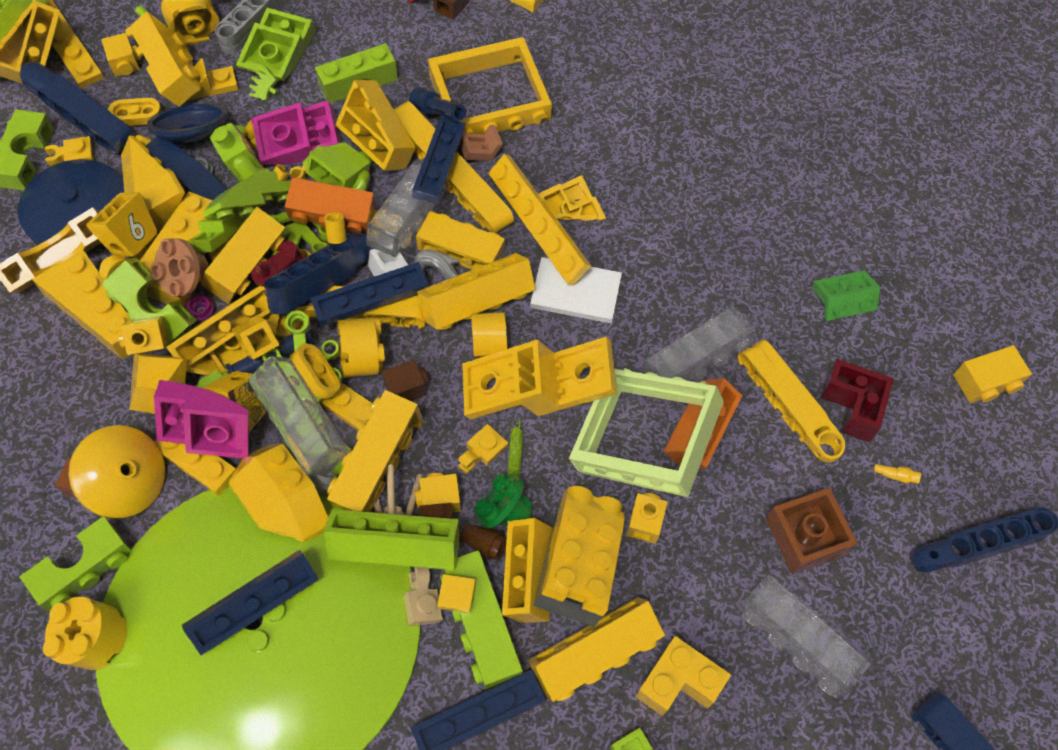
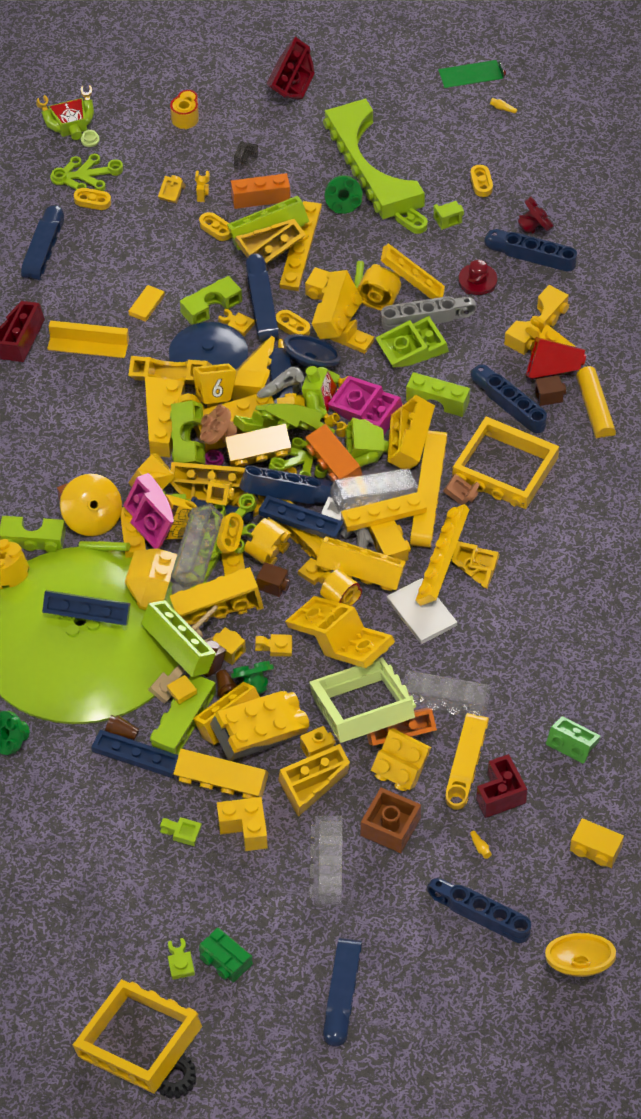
camera: 50 degrees right, 10 degrees down
(143, 335) = (167, 447): yellow brick -> none
(181, 503) = (105, 546): none -> lime piece
(196, 162) = (289, 377): none -> light grey piece
(223, 182) = (292, 398): none -> yellow plate
(265, 84) = (380, 361): lime piece -> none
(286, 256) = (279, 463): dark red piece -> none
(335, 228) = (320, 469): yellow hinge -> none
(424, 29) = (510, 398): none -> dark blue piece
(429, 700) = (121, 727): none -> reddish brown cone
(431, 103) = (457, 443): dark blue pin -> none
(433, 341) = (313, 572): none -> yellow plate
(438, 160) = (418, 476): dark blue plate -> none
(441, 221) = (383, 511): none -> yellow plate
(515, 450) = (290, 661): lime piece -> none
(689, 559) = (313, 777): none -> yellow wedge
(747, 458) = (400, 760): none -> yellow plate

